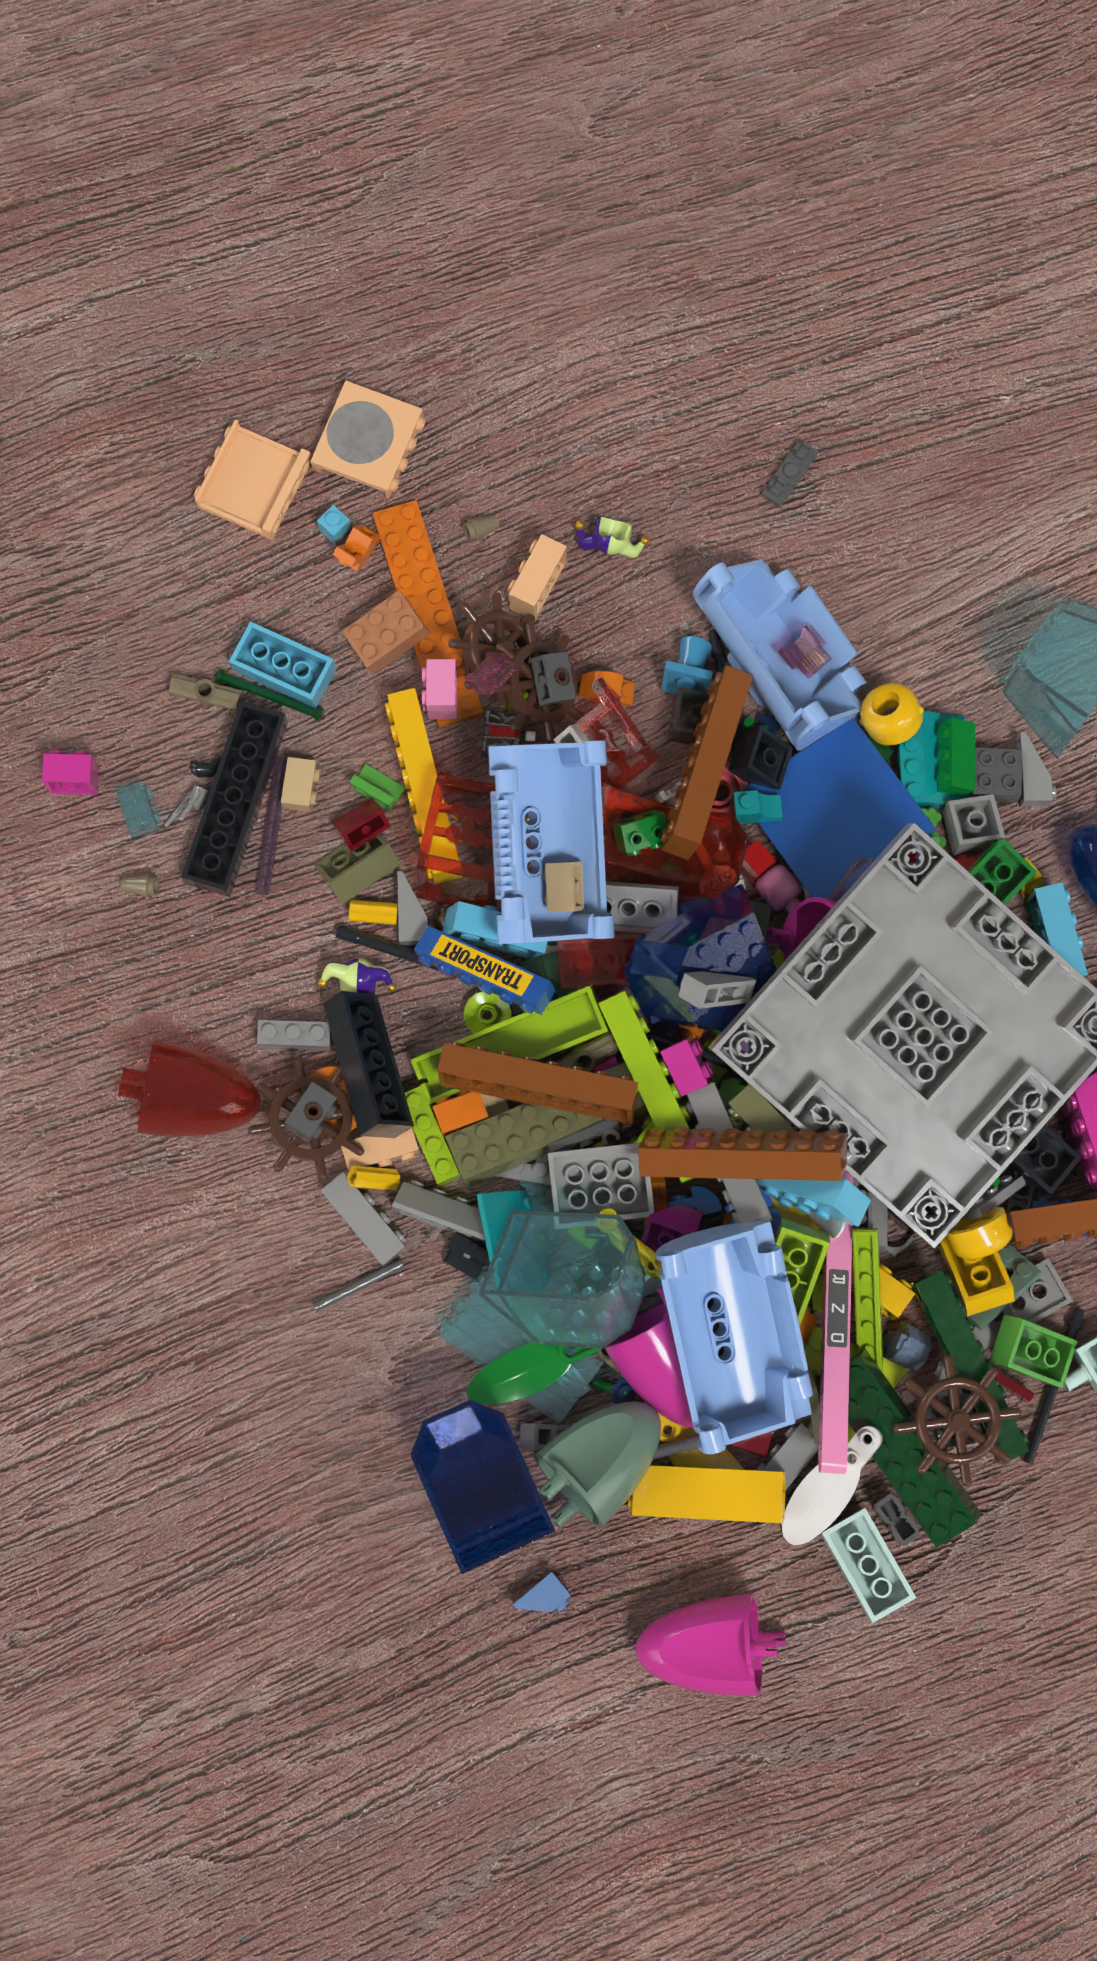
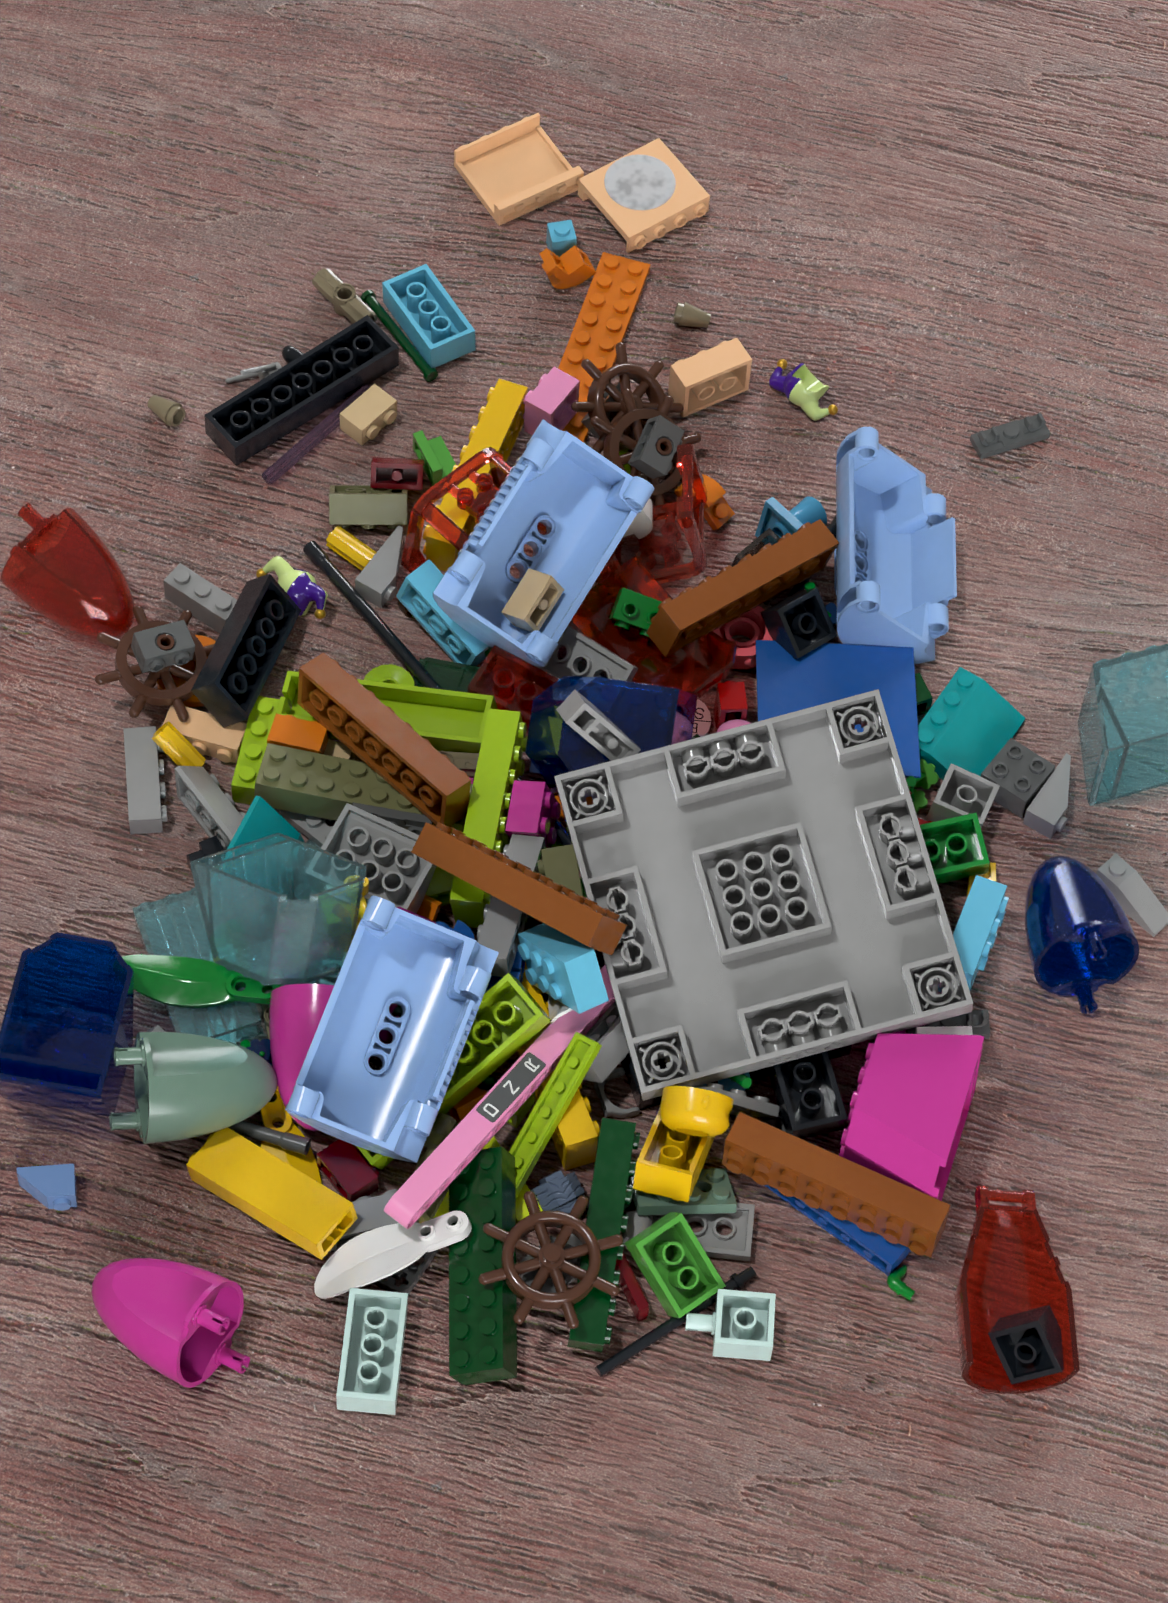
camera: 30 degrees right, 20 degrees down
(70, 773) = (176, 287): dark pink brick -> none
(138, 810) = (212, 352): clear light blue brick -> none
(358, 1285) = (95, 832): dark grey bar -> none
(386, 632) = (539, 341): nougat brick -> none
(484, 970) = (410, 635): brick -> none
(491, 673) = (600, 404): clear pink piece -> none
(756, 807) = (760, 655): teal arch -> none
(806, 652) = (911, 572): clear pink piece -> none
(896, 726) = (950, 659): yellow piece -> none
(899, 1525) = (430, 1330): dark grey brick -> none
(956, 757) = (987, 735): green brick -> none

